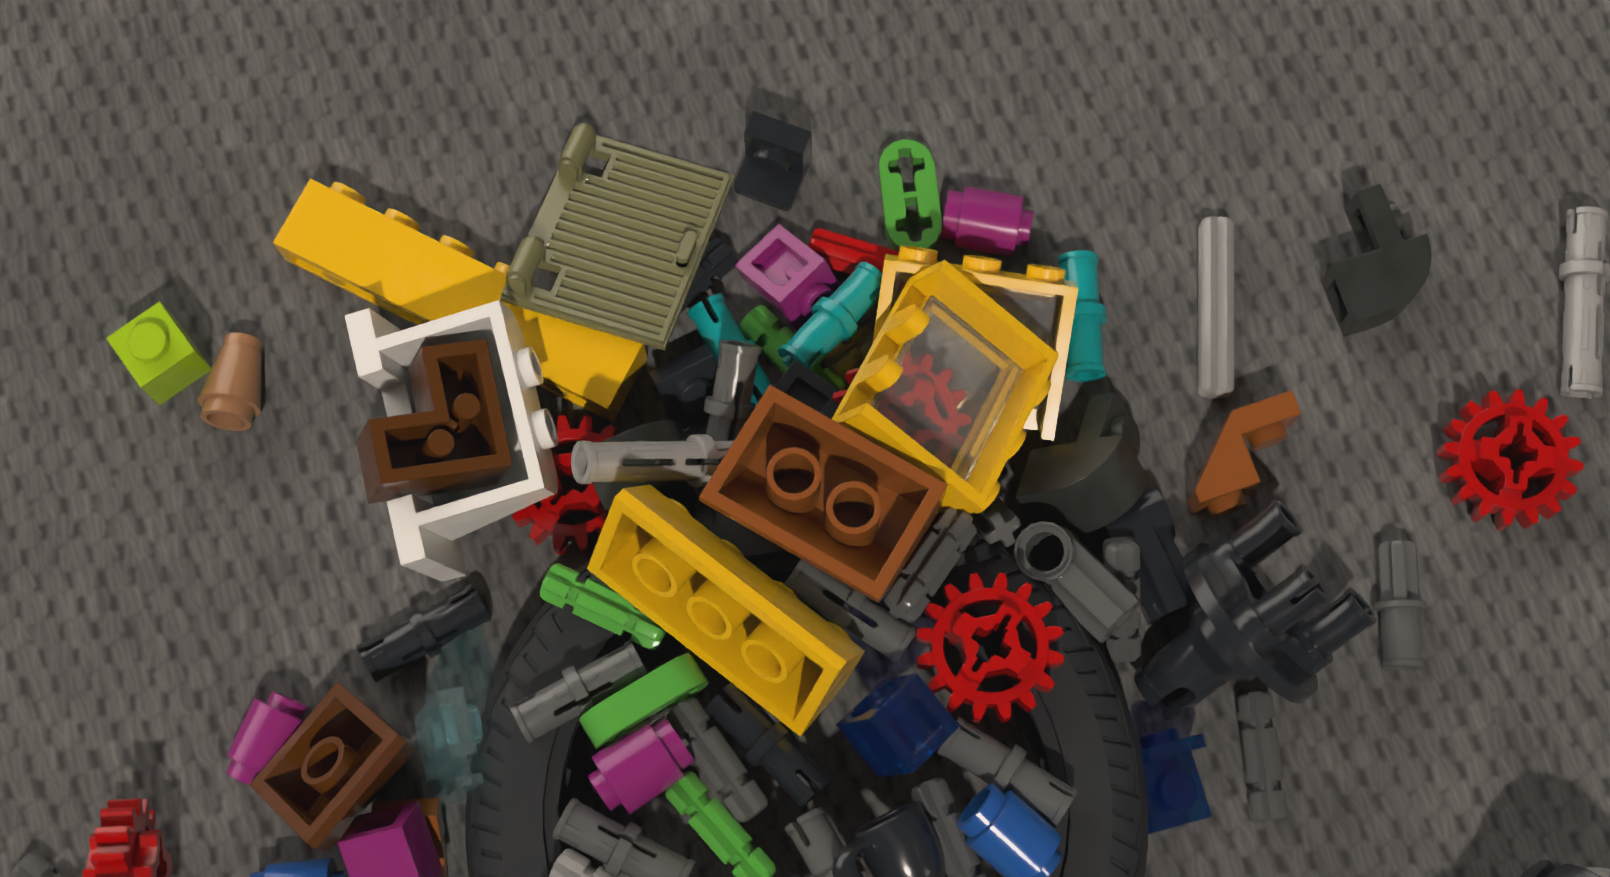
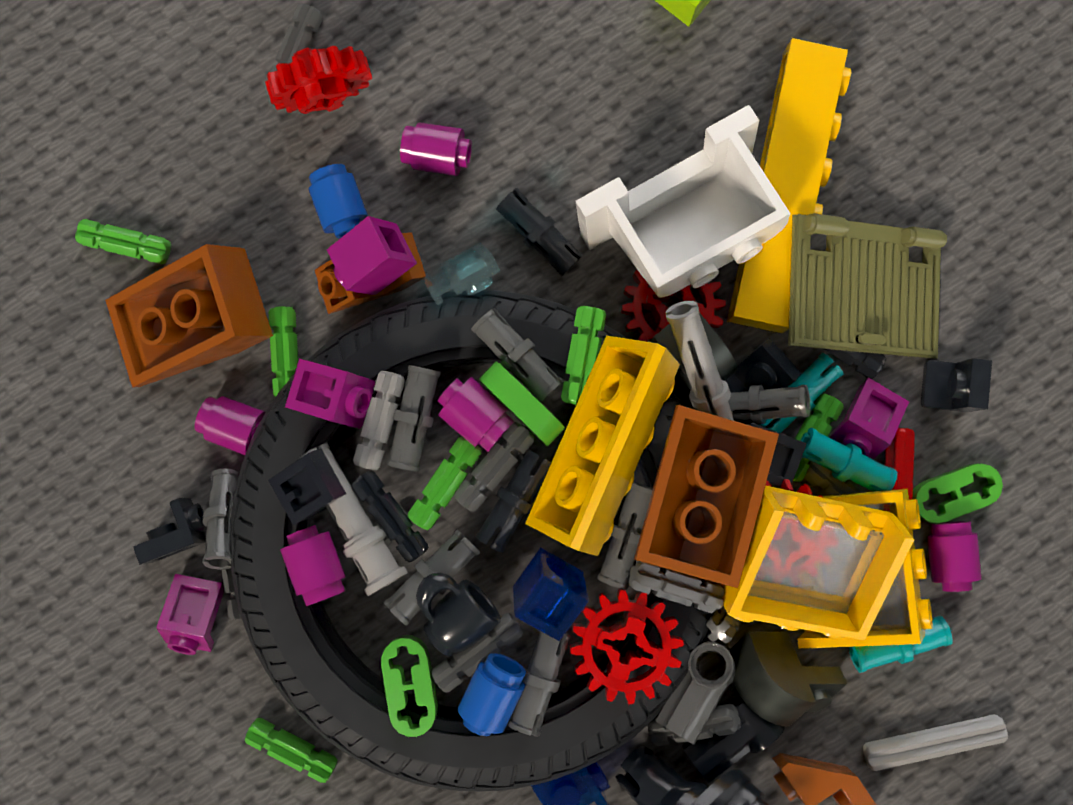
camera: 75 degrees right, 10 degrees up
(234, 384) = (680, 44): medium nougat cone -> none
(332, 768) = (425, 197): reddish brown slope -> none
(451, 439) = (680, 210): reddish brown brick -> none

